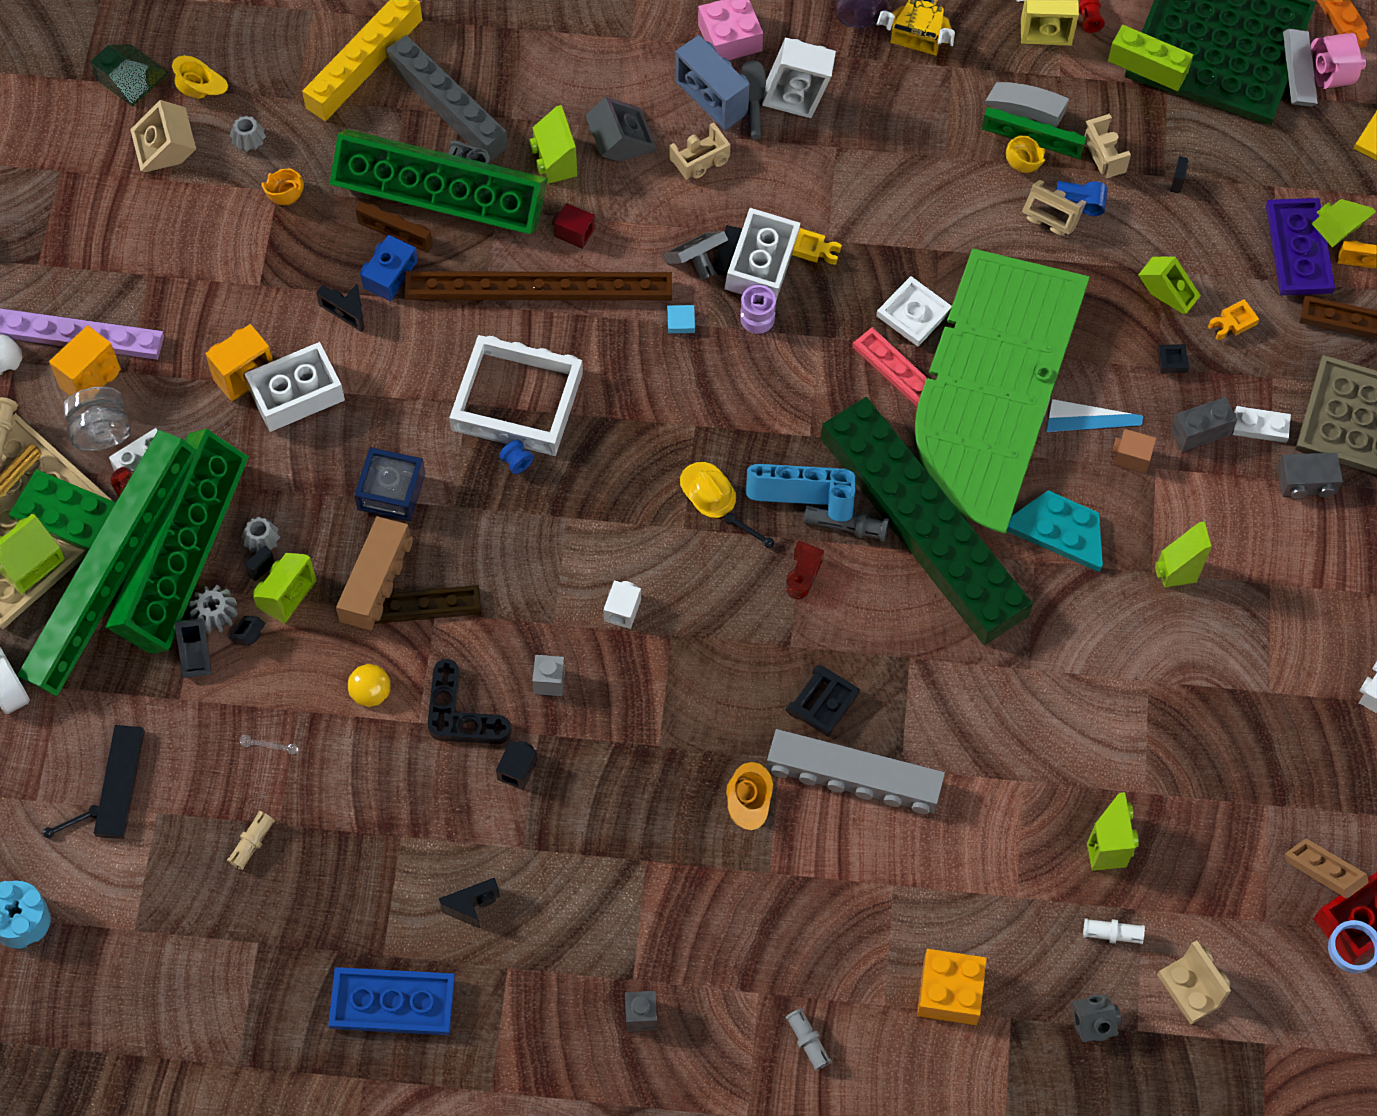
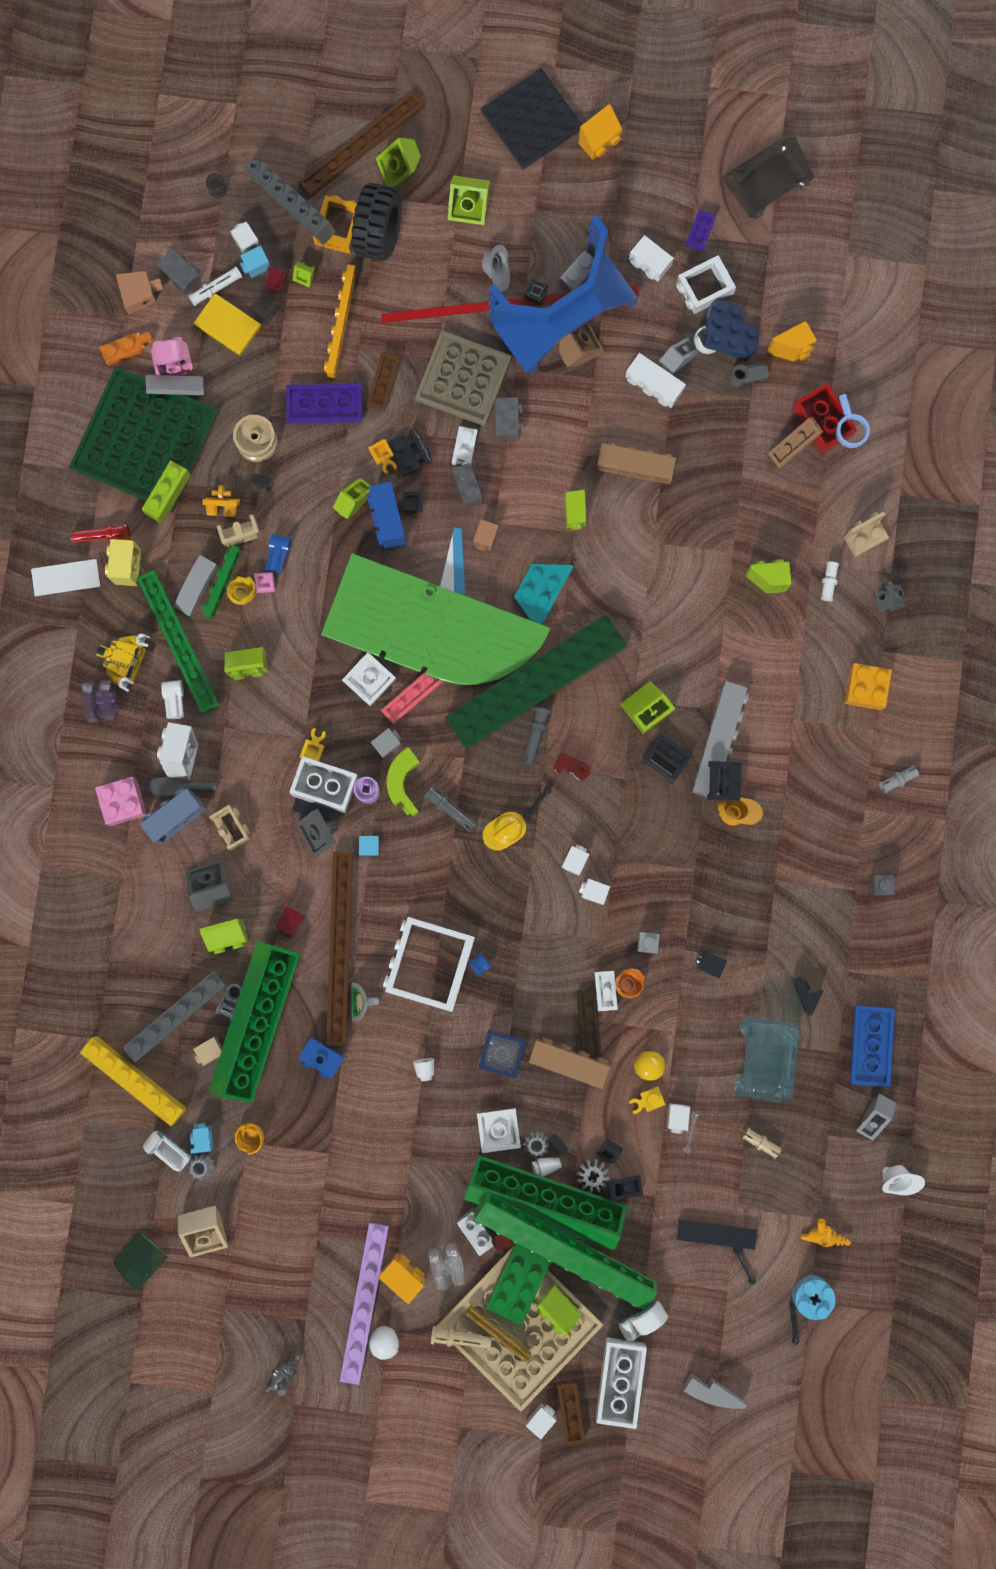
camera: 85 degrees left, 20 degrees up
(107, 934) = (825, 1236): none -> light orange piece
(183, 1041) = (900, 1181): none -> white piece
(196, 78) = (152, 1206): yellow piece -> none
(229, 548) = (545, 1166): none -> white cone
(236, 356) = (402, 1164): light orange brick -> none
(272, 93) = (167, 1150): none -> white animal
(282, 487) = (498, 1130): none -> white plate
(284, 1007) = (876, 1117): none -> light grey slope
(285, 134) = (201, 1138): none -> medium azure brick
(285, 586) = (578, 1126): lime slope -> none
(292, 722) = (678, 1117): none -> white brick
(294, 386) = (422, 1124): white brick -> none
(318, 686) = (650, 1099): none -> yellow plate
(346, 308) = (356, 1085): black slope -> none
(371, 392) = (424, 1068): none -> white hat
(372, 852) = (769, 1060): none -> clear light blue windscreen
(394, 225) = (285, 1054): reddish brown plate -> none
(400, 130) = (208, 1051): none -> tan brick
(456, 720) = (676, 1005): black beam -> none
(464, 311) = (360, 1002): none -> shield
(478, 622) = (606, 991): none -> white plate
(489, 651) = (629, 983): none -> orange hair
(667, 577) = (575, 859): none -> white brick
(744, 406) = (442, 802): none -> dark grey pin
(773, 347) = (397, 773): none -> lime arch
(792, 779) = (729, 781): none -> black plate
(804, 485) = (512, 765): dark azure beam -> none
(825, 333) = (386, 743): none -> light grey brick
(877, 82) = (173, 693): none -> white piece
(896, 670) = (647, 707): none -> lime slope
(925, 160) = (246, 662): none -> lime slope
(948, 87) = (178, 641): none -> green plate
(1031, 178) = (264, 582): none -> bright pink tile
(1056, 200) = (291, 575): tan window -> none
(1142, 119) = (213, 503): none -> light orange hips
(1147, 320) = (386, 516): none -> blue brick
(1238, 162) = (245, 438): none -> tan wheel
(1240, 348) = (403, 454): none -> black plate
(1266, 648) = (636, 463): none -> medium nougat brick
(1341, 219) = (309, 371): lime slope -> none

